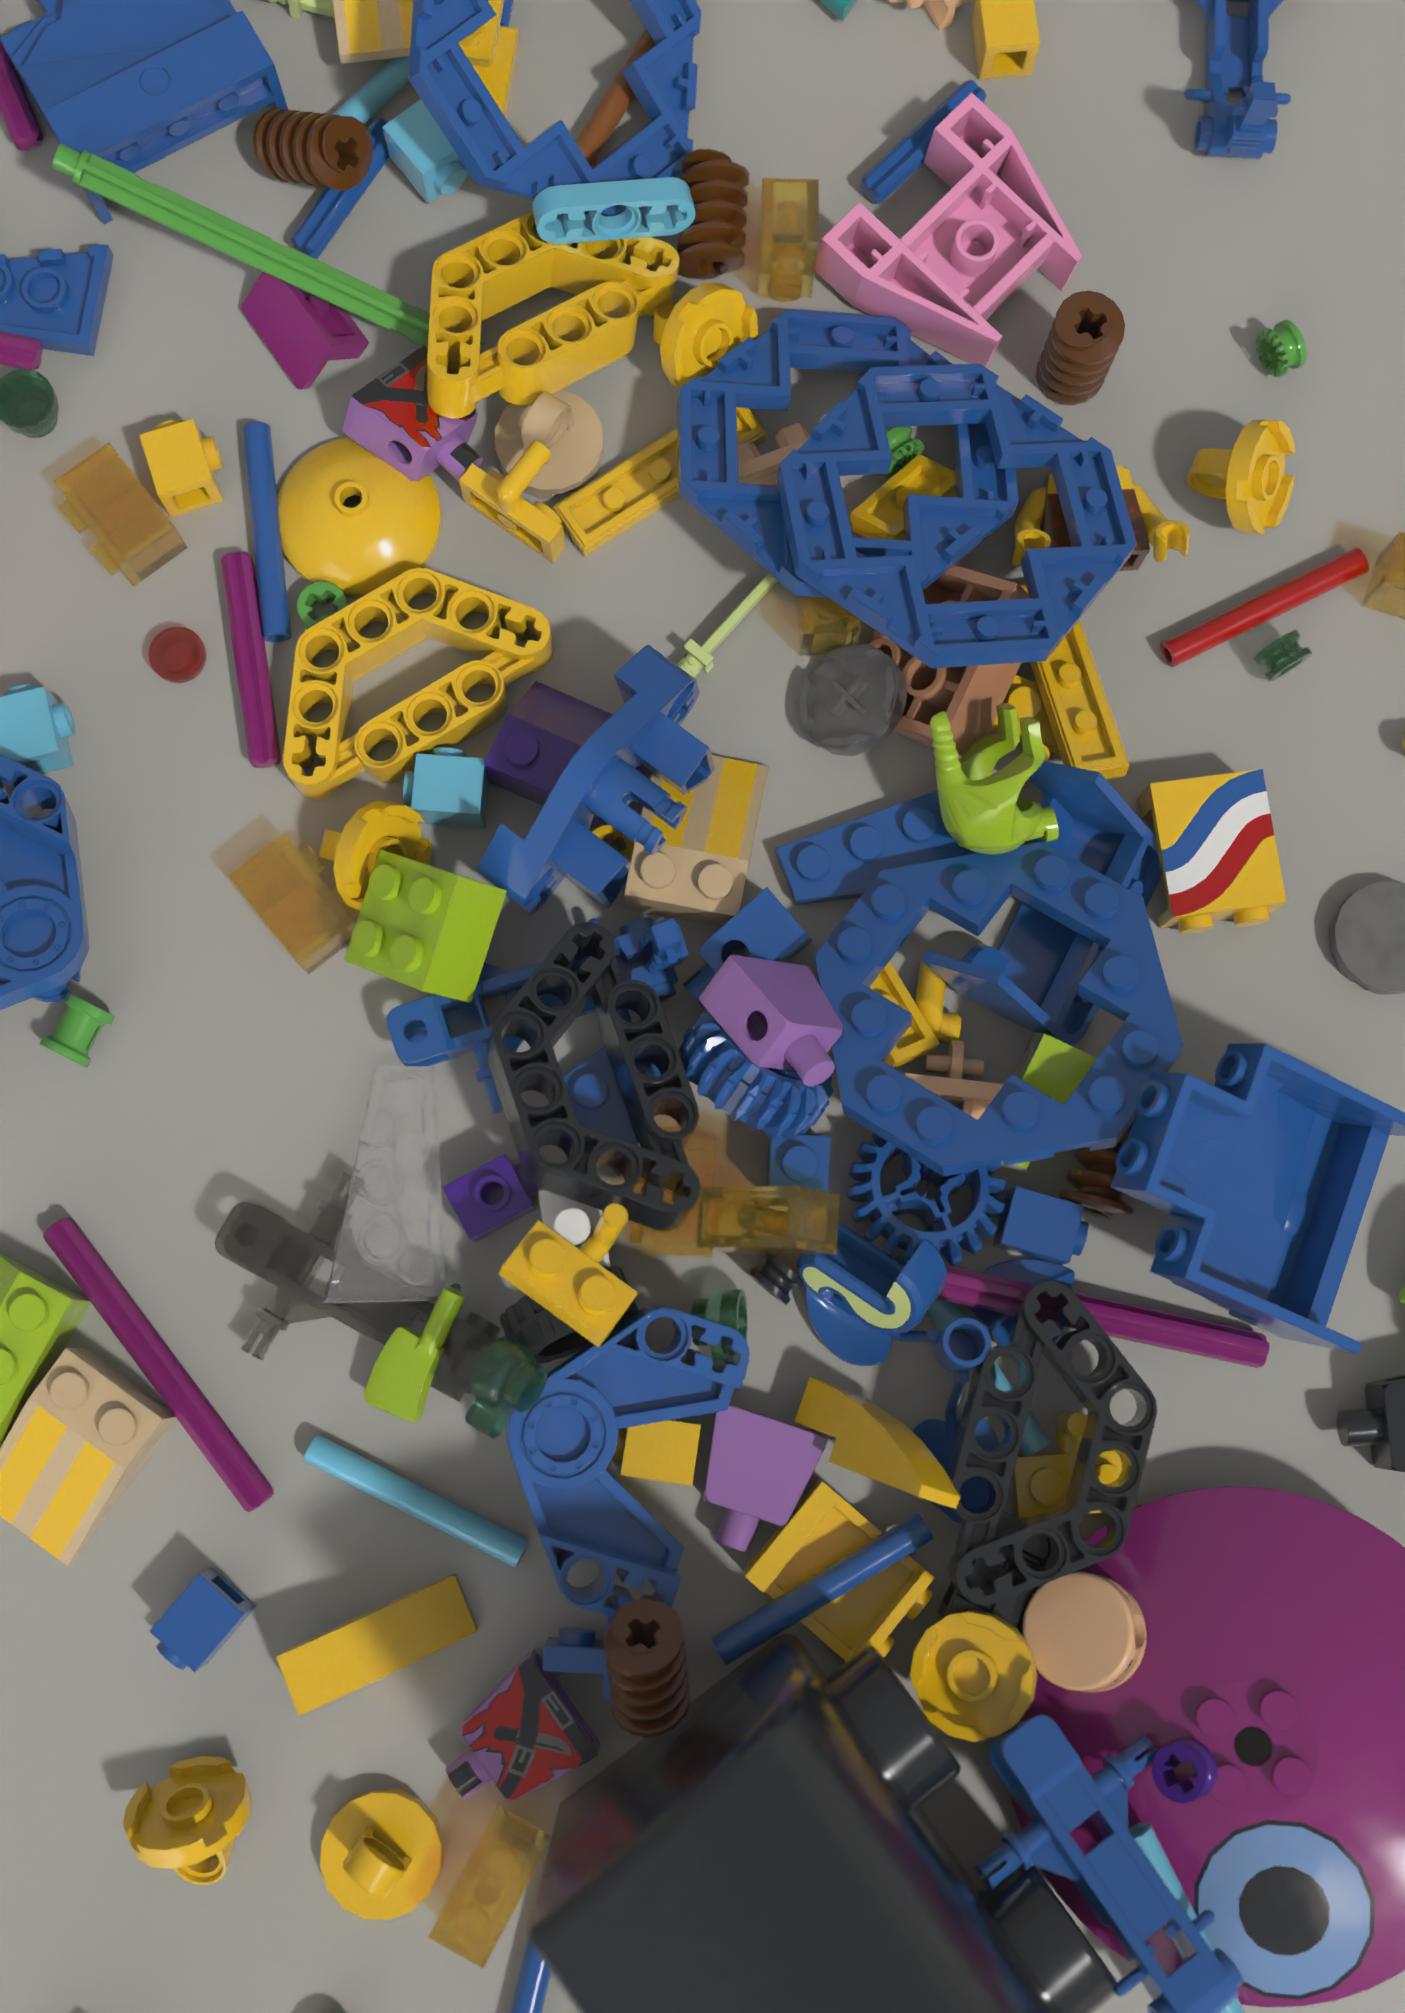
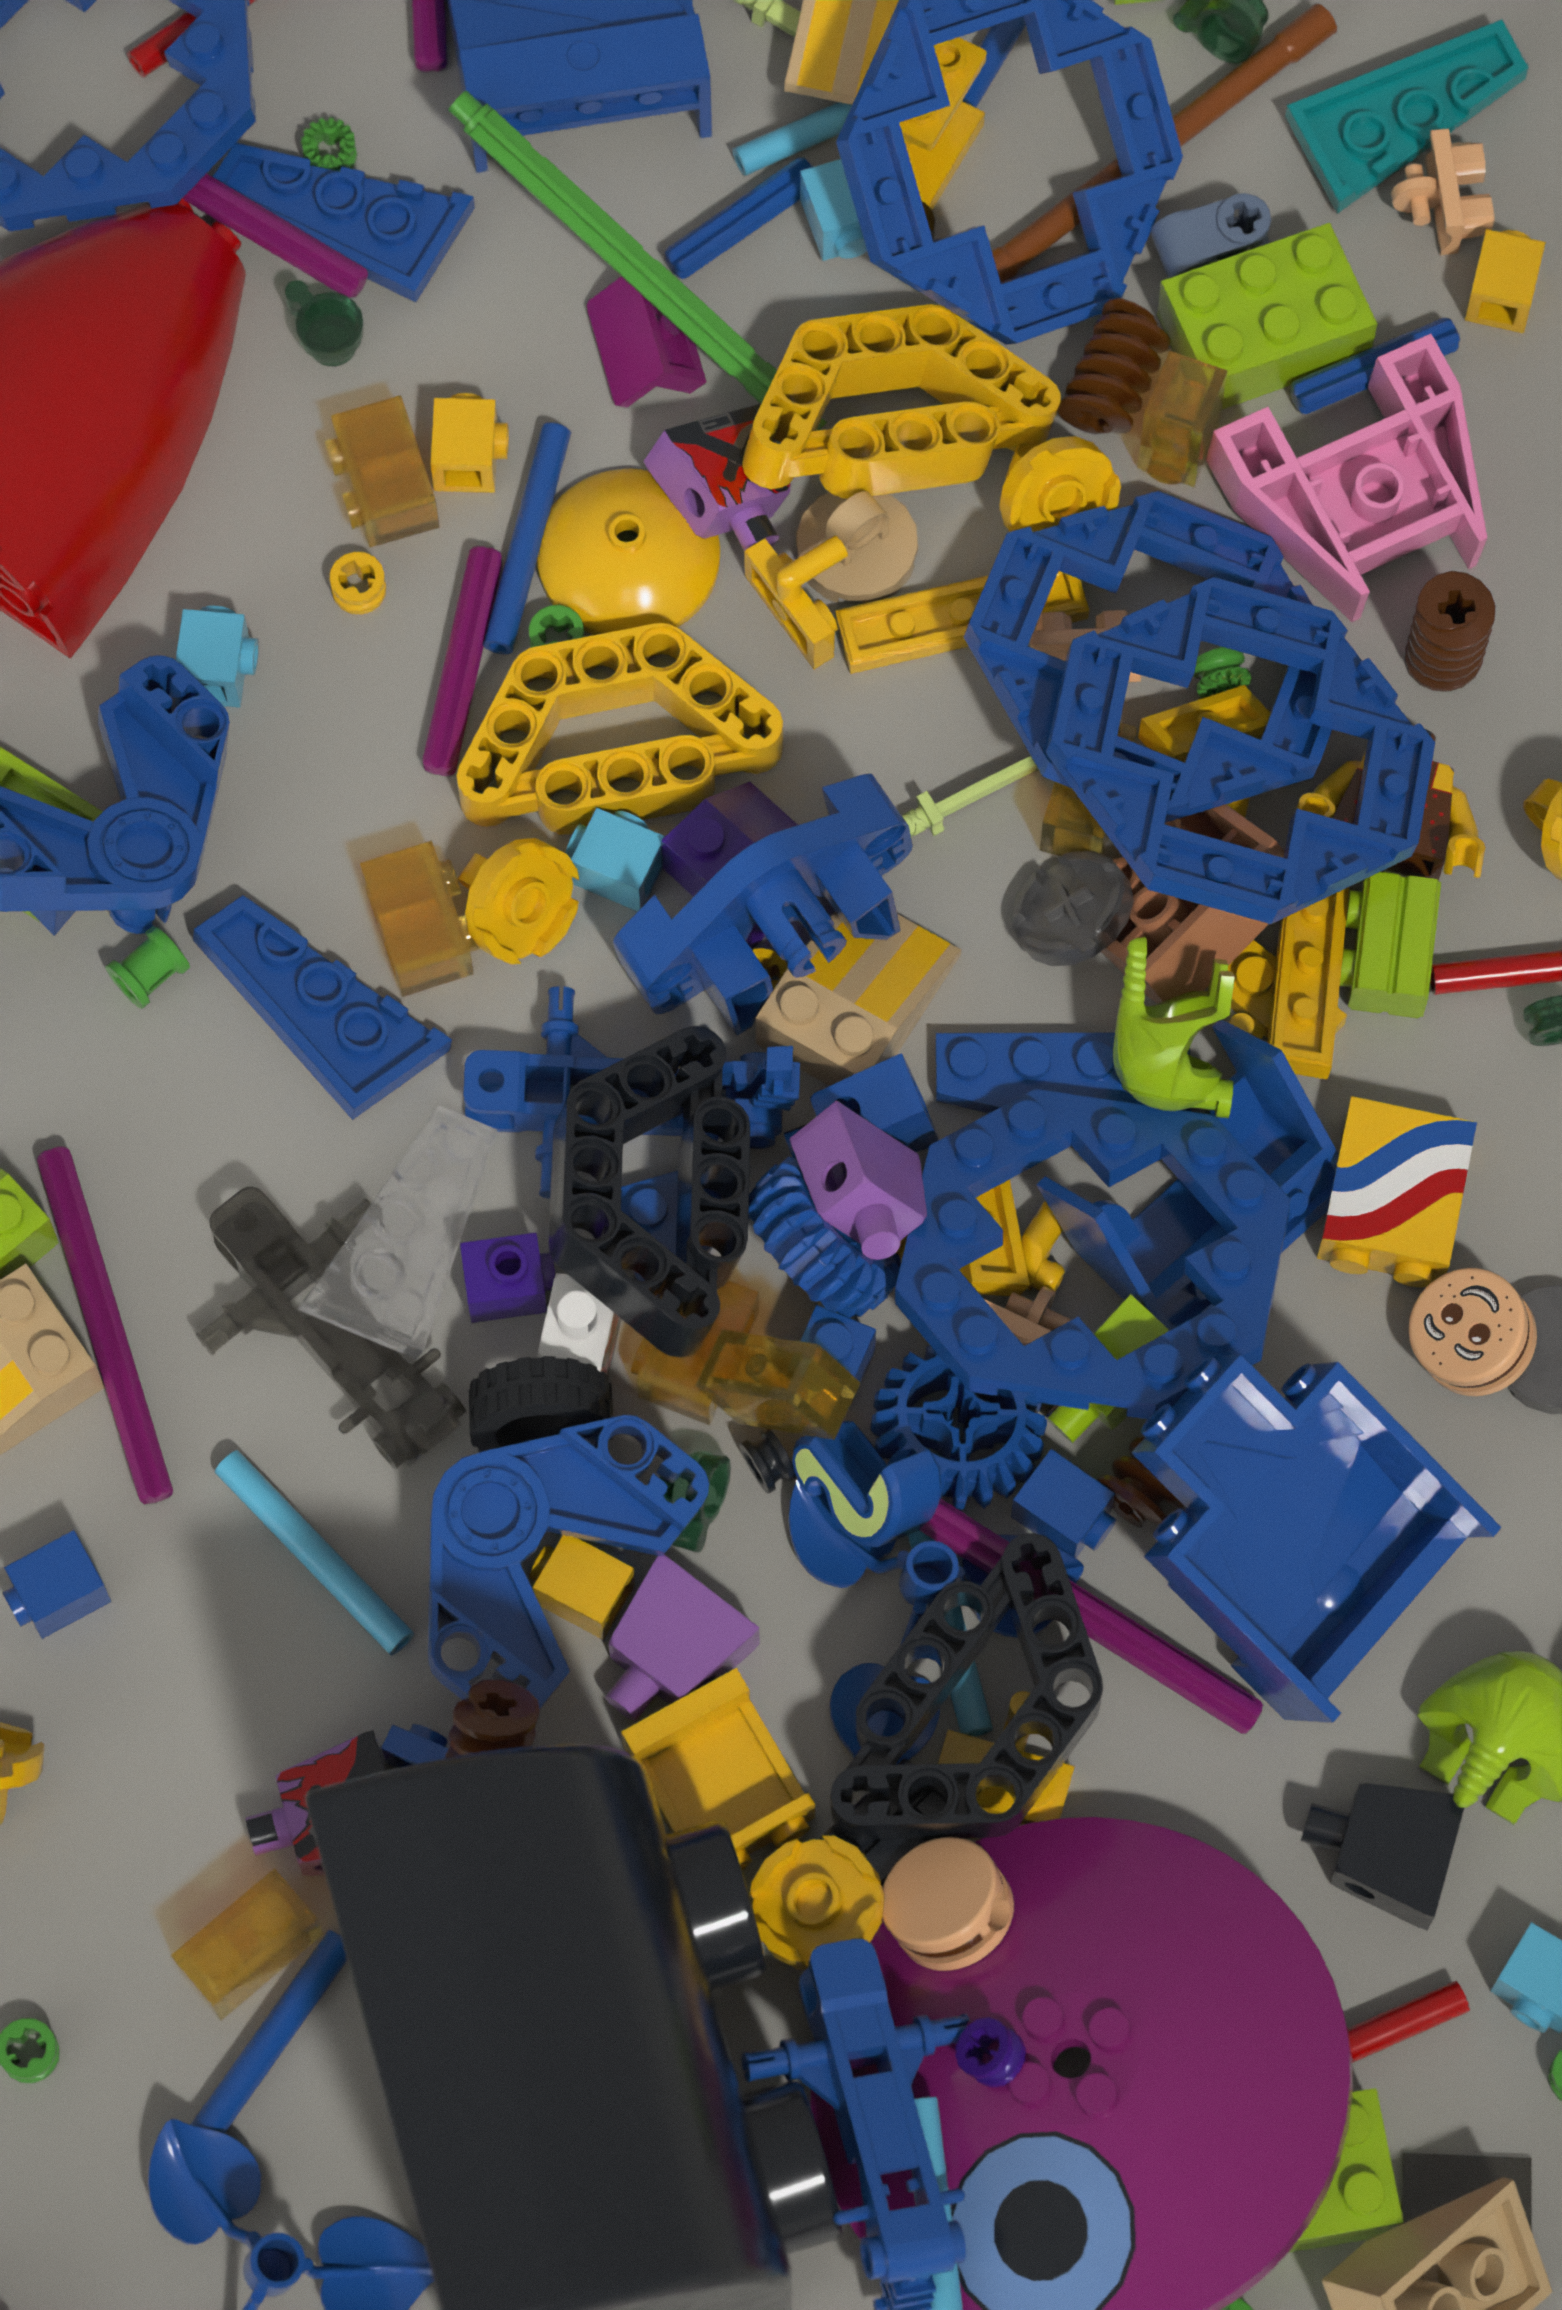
camera: 25 degrees right, 10 degrees down
(137, 605) = (350, 598): none -> yellow bush
(177, 654) = (389, 630): clear red plate -> none
(257, 1021) = (328, 1019): none -> blue wing
(313, 148) = (720, 169): reddish brown piece -> none
(376, 1644) = (222, 1671): yellow slope -> none
(381, 1854) = (148, 1883): yellow tile -> none
(409, 1361) = (362, 1402): lime piece -> none
(425, 926) = (541, 977): lime brick -> none
(501, 1381) = (450, 1427): clear green piece -> none
(571, 1279) = (558, 1360): yellow plate -> none
(574, 199) = (949, 323): medium azure beam -> none
(750, 75) = (1210, 233): none -> sand blue piece
(822, 1588) = (740, 1772): blue piece -> none
(824, 119) = (1269, 313): none -> lime brick
(874, 1442) = (800, 1642): yellow slope -> none
(1131, 638) = (1392, 944): none -> lime brick
(1322, 951) = (1472, 1332): none -> light nougat head

